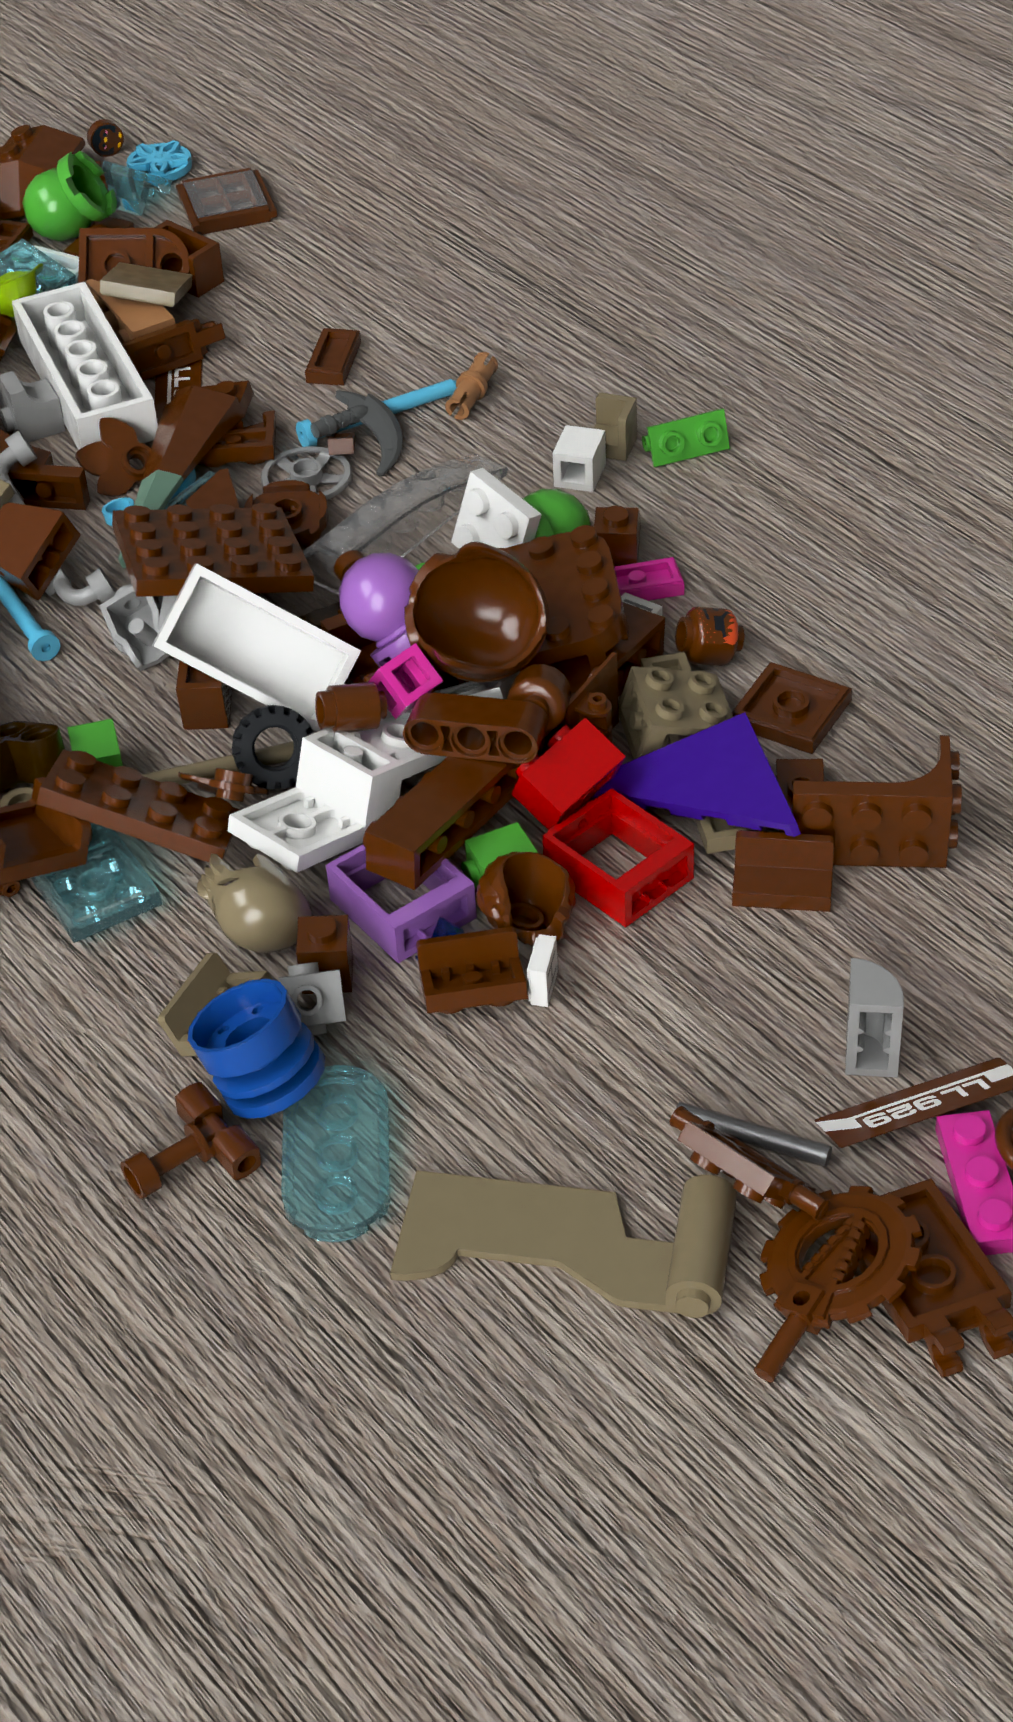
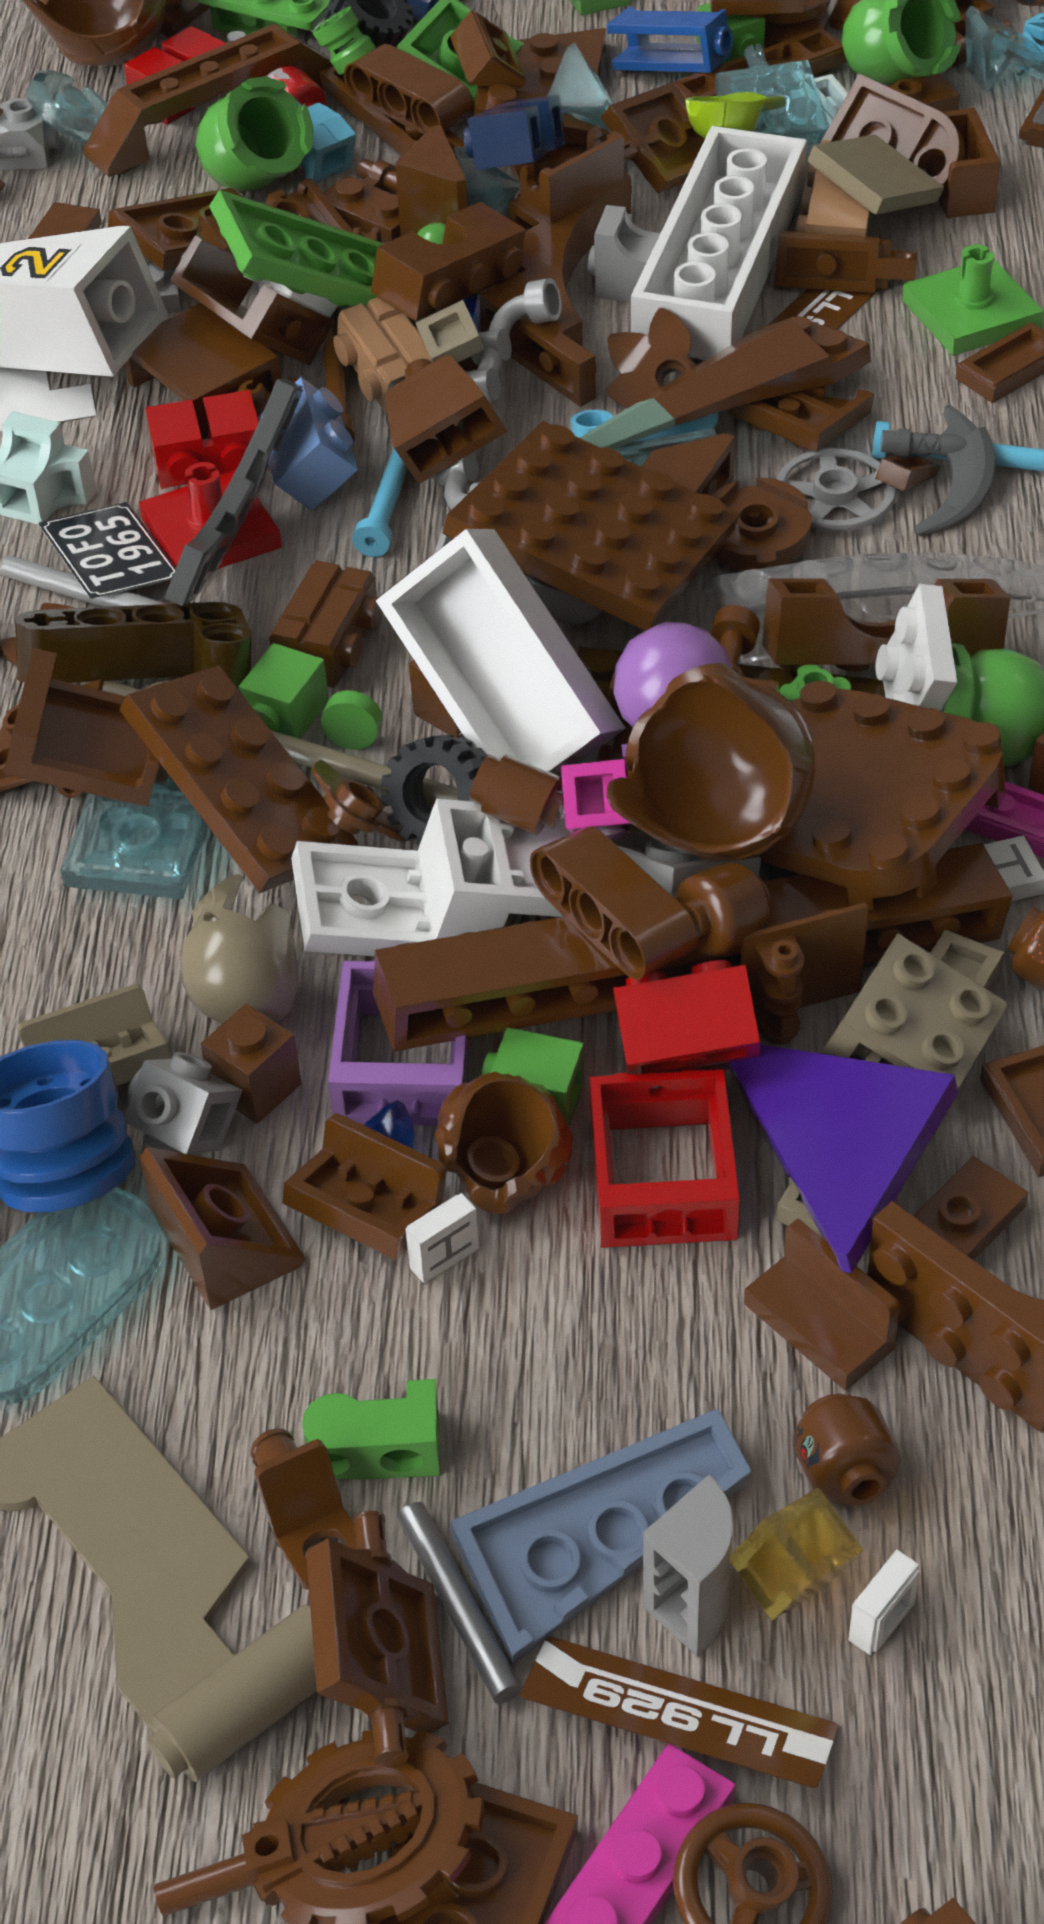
camera: 40 degrees right, 5 degrees up
(74, 695) = (330, 616): none -> reddish brown brick
(159, 747) = (351, 720): none -> bright green tile
(273, 334) = (971, 302): none -> bright green tile
(401, 1052) = (218, 1223): none -> reddish brown slope
(408, 536) = (810, 626): none -> reddish brown arch
(620, 1142) = (299, 1496): none -> reddish brown bracket
(622, 1085) = (378, 1435): none -> bright green leg
(784, 1051) = (581, 1533): none -> sand blue wing
(871, 929) = (845, 1448): none -> reddish brown head
(920, 978) = (795, 1553): none -> clear yellow brick
(969, 982) = (884, 1603): none -> white tile

